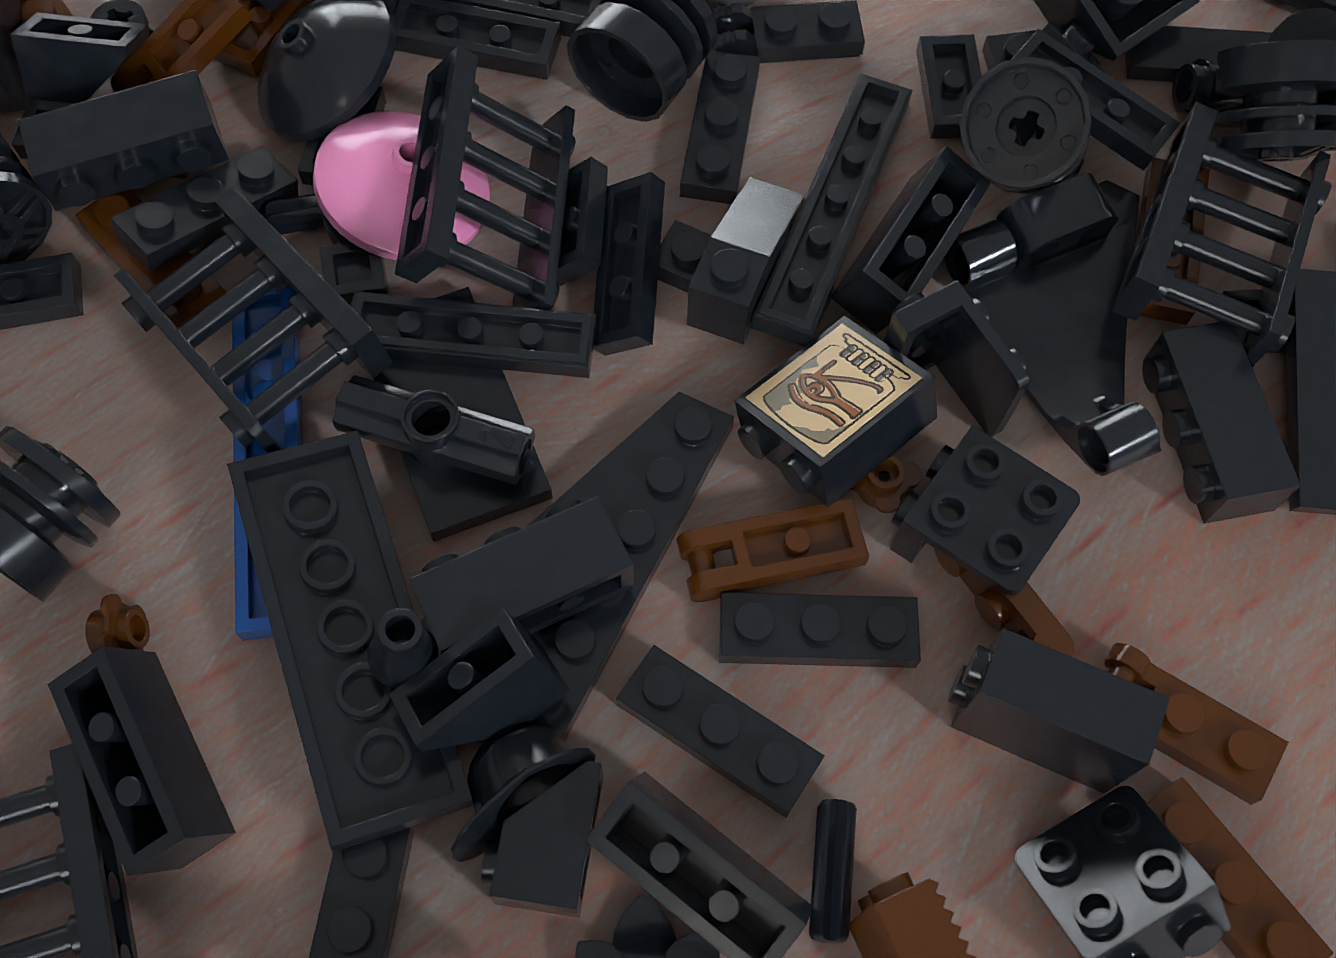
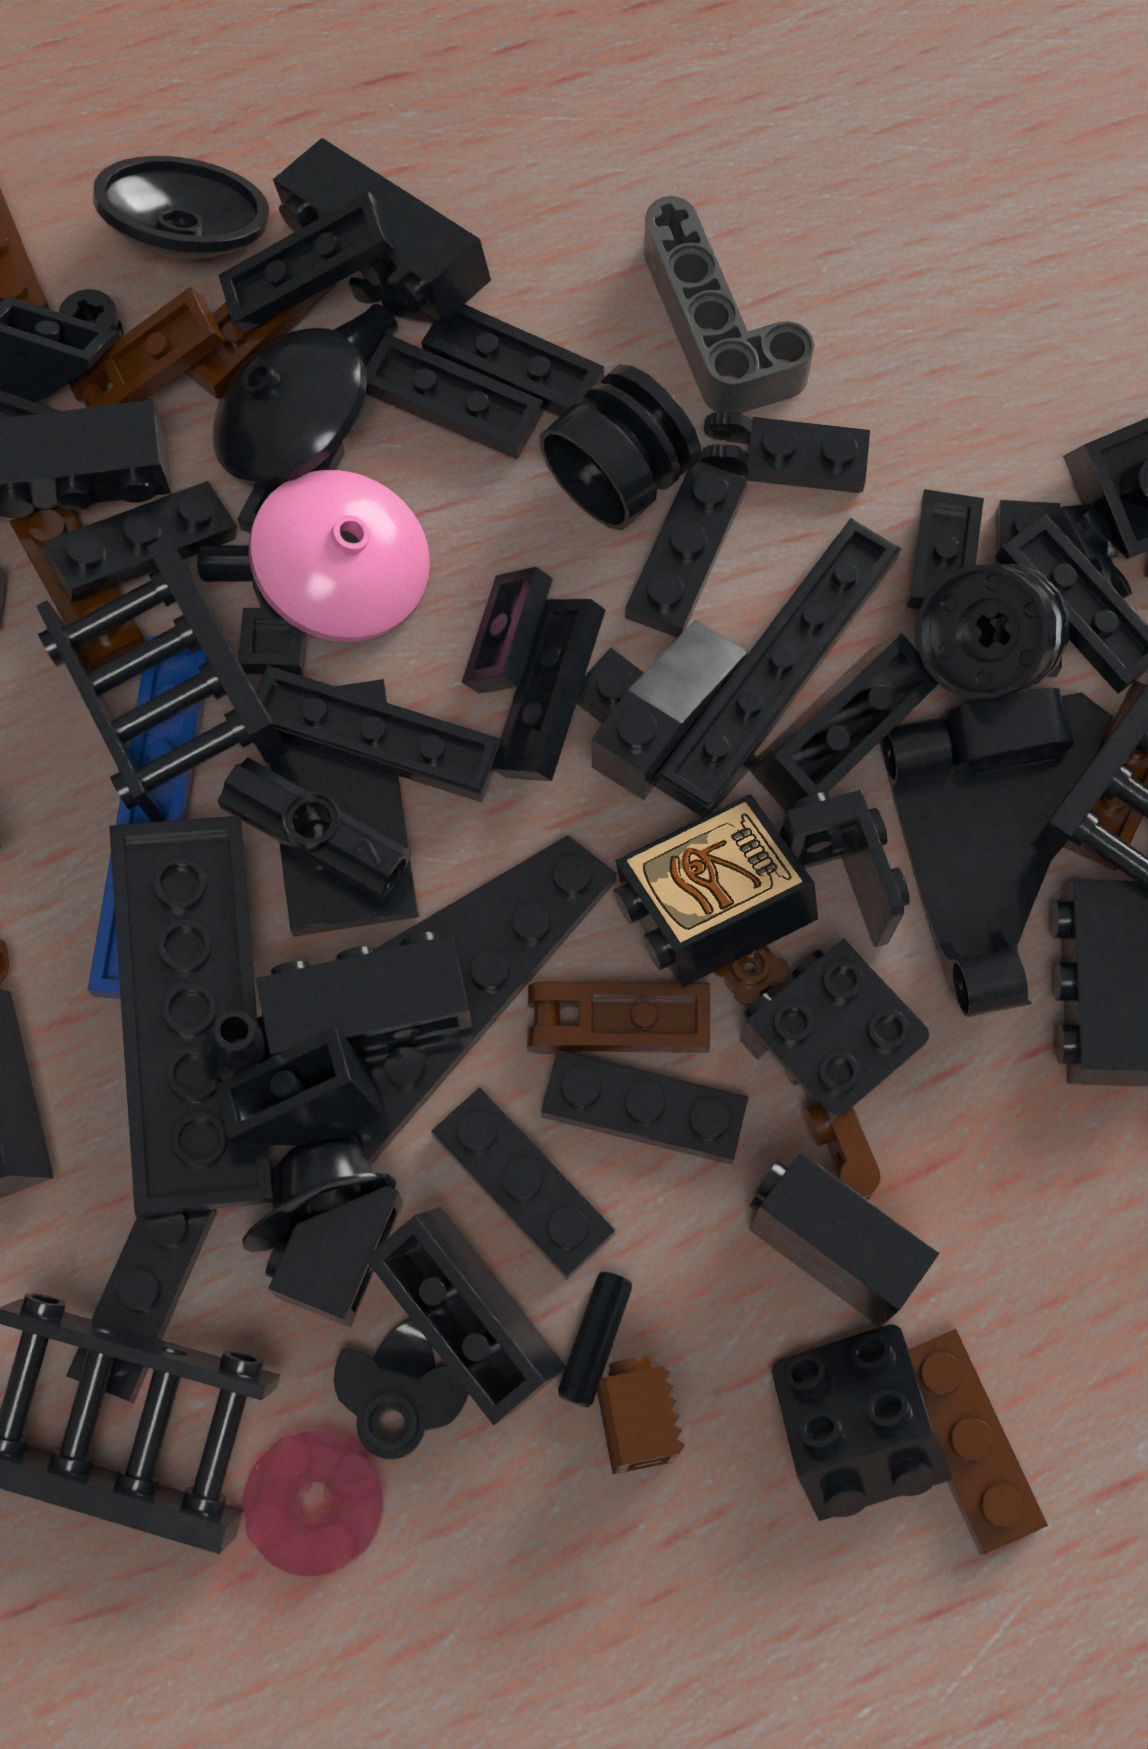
camera: 15 degrees right, 5 degrees up
(438, 192) = (368, 582): black fence -> none
(1204, 731) = (986, 1283): reddish brown plate -> none

